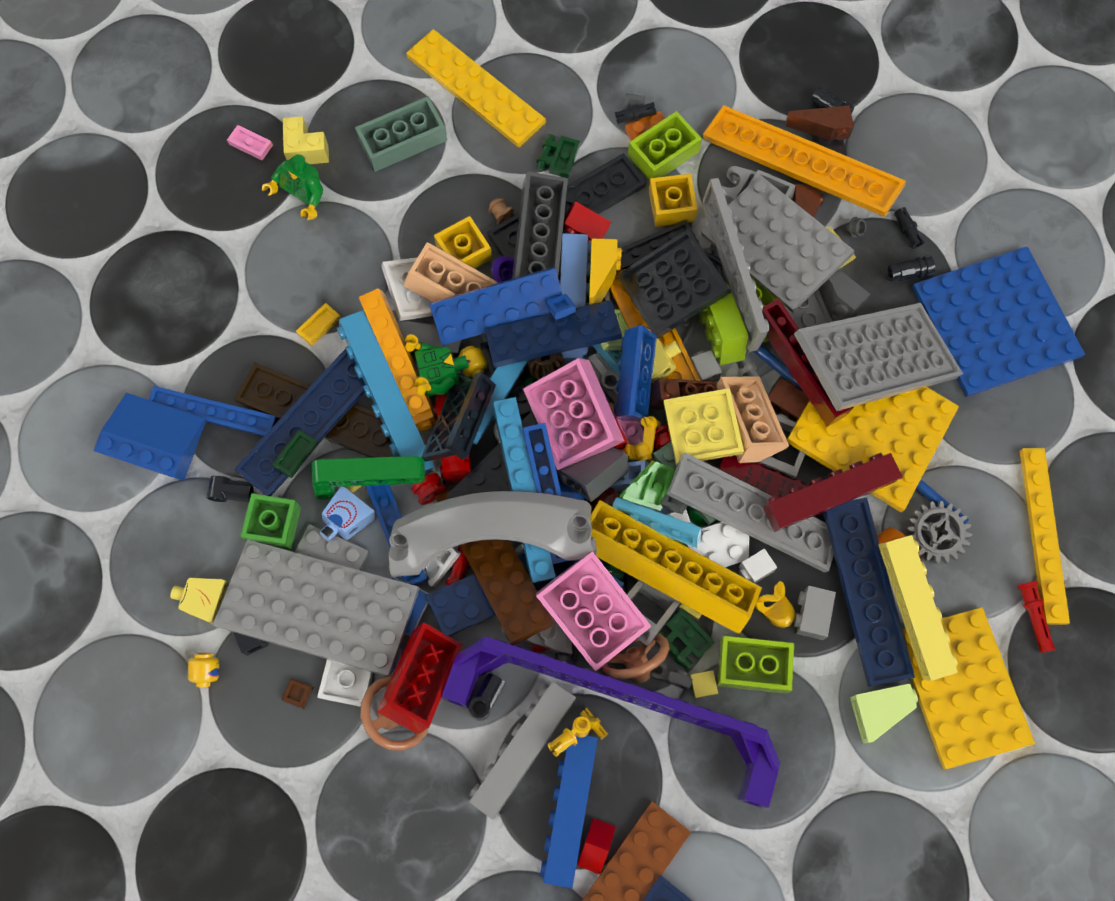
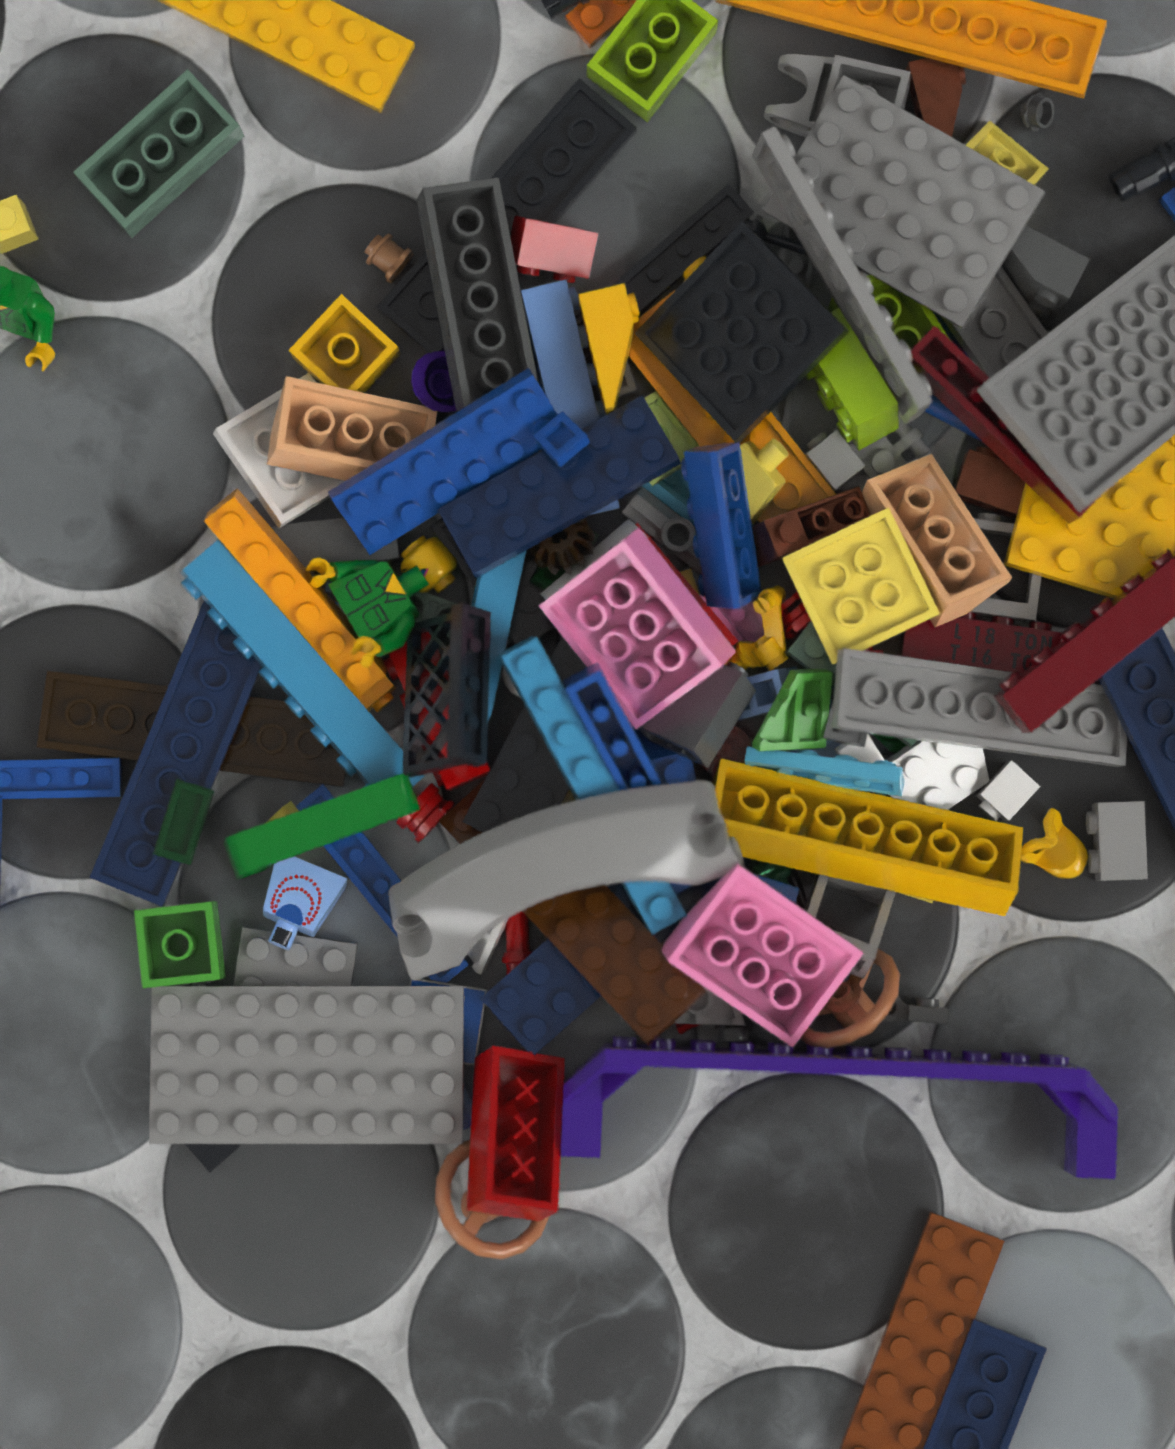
camera: 15 degrees left, 15 degrees up
(201, 597) = (110, 1102): light yellow torso -> none
(203, 669) = (155, 1214): yellow head -> none
(225, 489) = (77, 909): black piece -> none
(297, 693) = (318, 1206): reddish brown tile -> none
(318, 324) = (132, 565): yellow tile -> none
(344, 683) = (391, 1173): white plate -> none
(487, 695) = (626, 1122): black piece -> none
(522, 750) = (708, 1192): light grey brick -> none
(564, 156) = (471, 113): dark green plate -> none
(569, 813) = (808, 1262): blue brick -> none
(580, 728) = (792, 1140): yellow pin -> none
(596, 846) = (864, 1302): red slope -> none
(673, 199) = (695, 153): yellow brick -> none
(690, 635) = (925, 934): dark green plate -> none
(704, 684) = (967, 1006): light yellow tile -> none
(755, 664) = (1042, 956): lime brick -> none
(909, 227) = (1130, 85): black pin -> none

